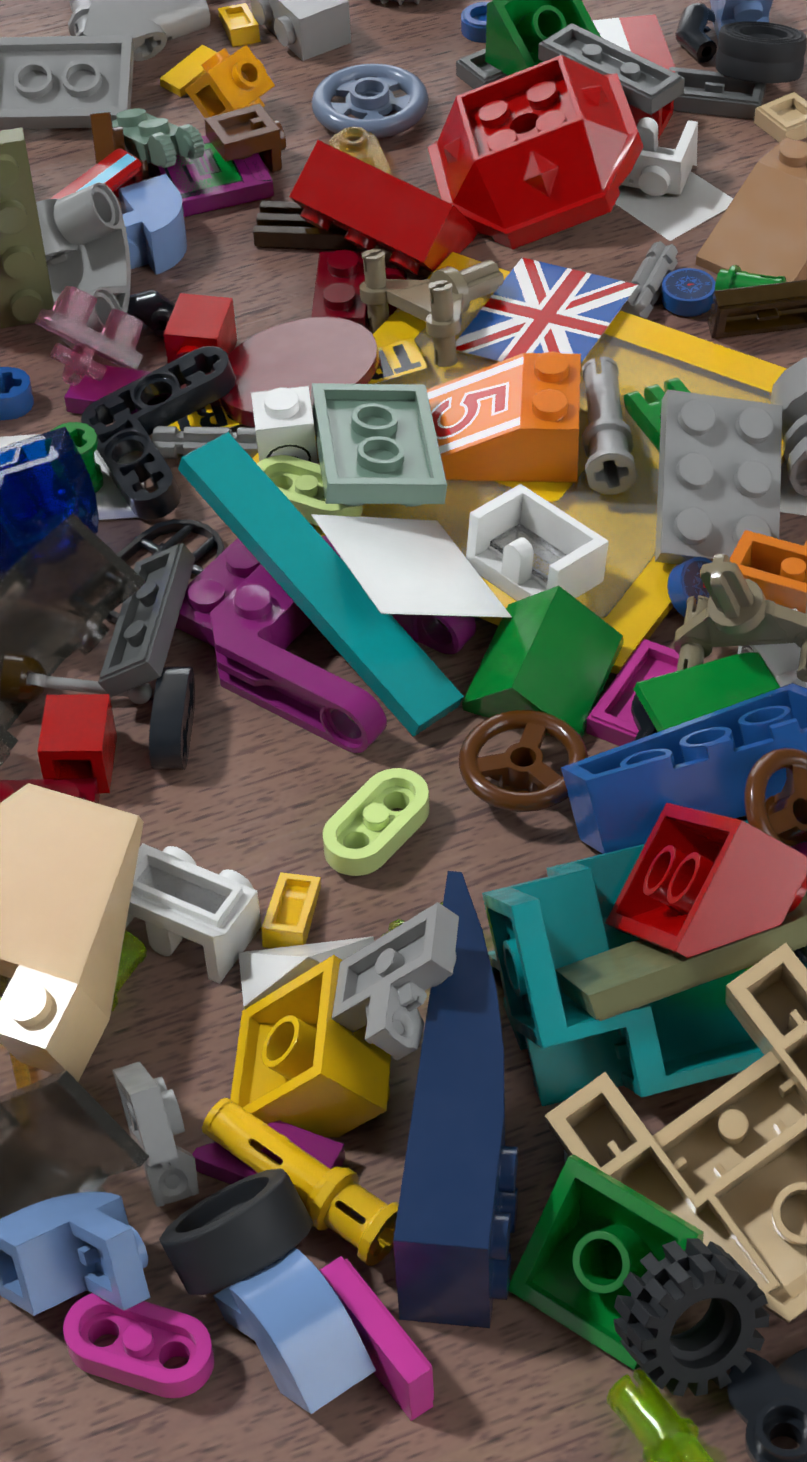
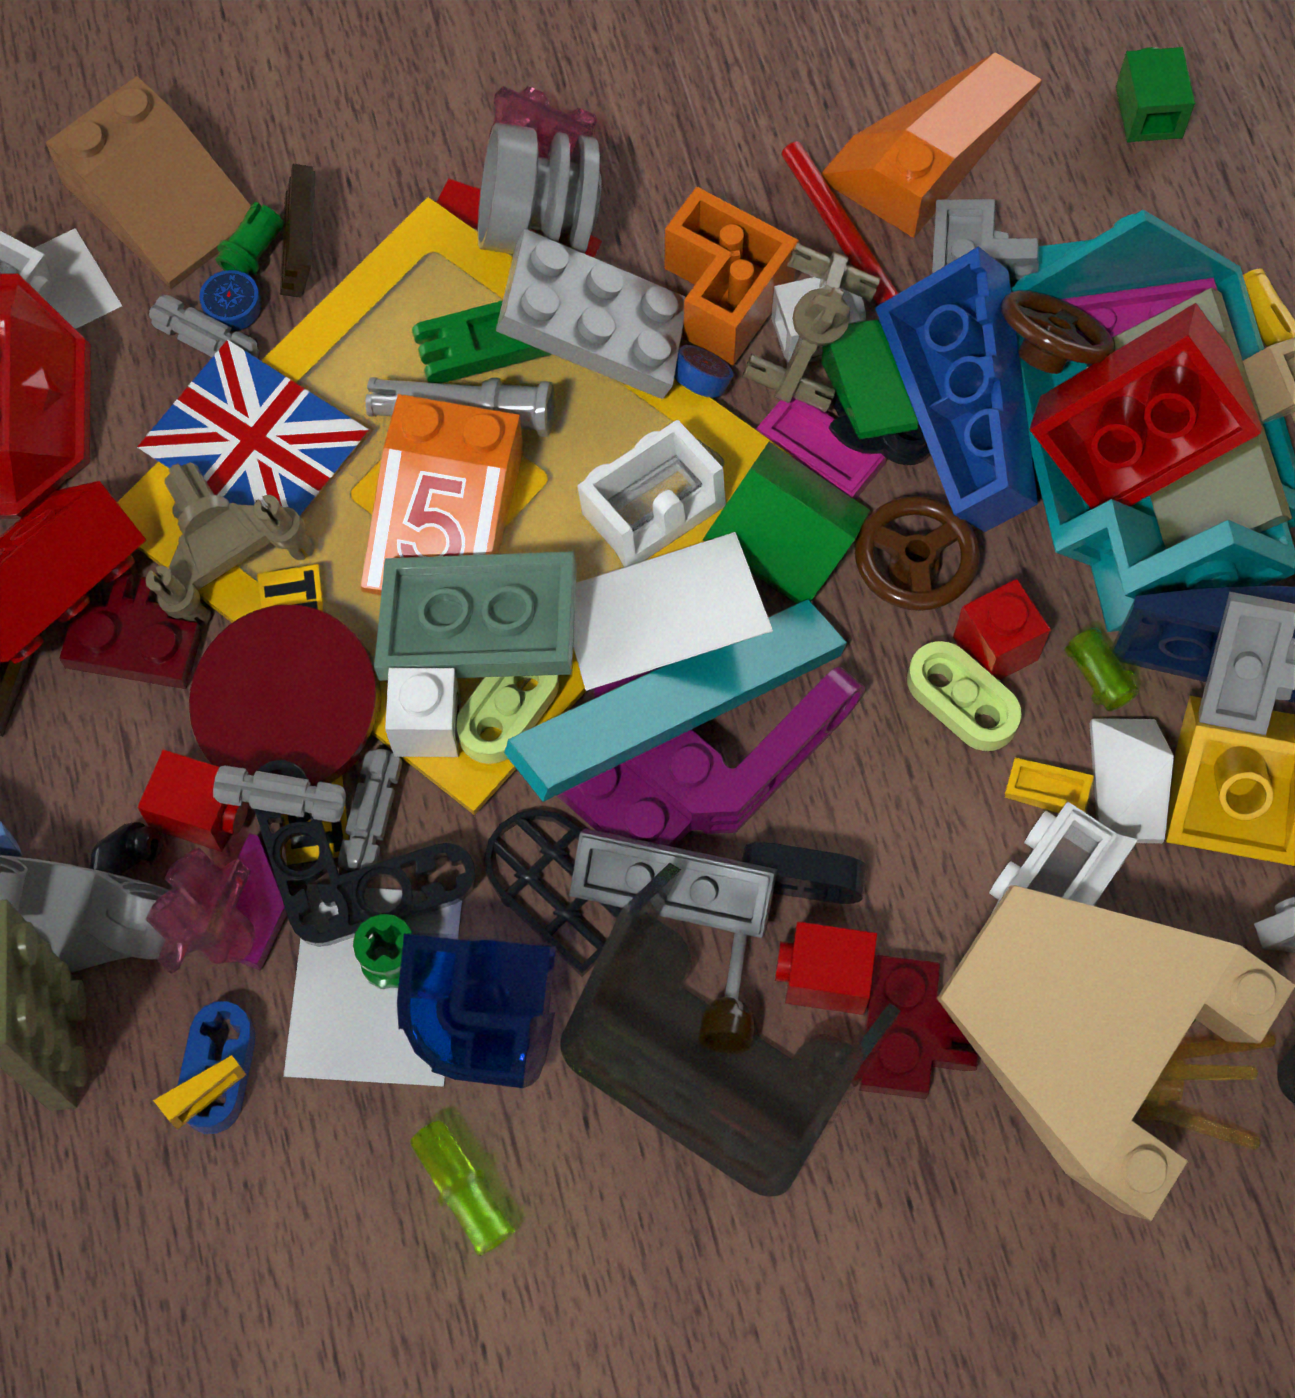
camera: 85 degrees left, 20 degrees up
(193, 356) = (279, 793): none -> light grey axle
(445, 832) = (1002, 630): none -> red brick

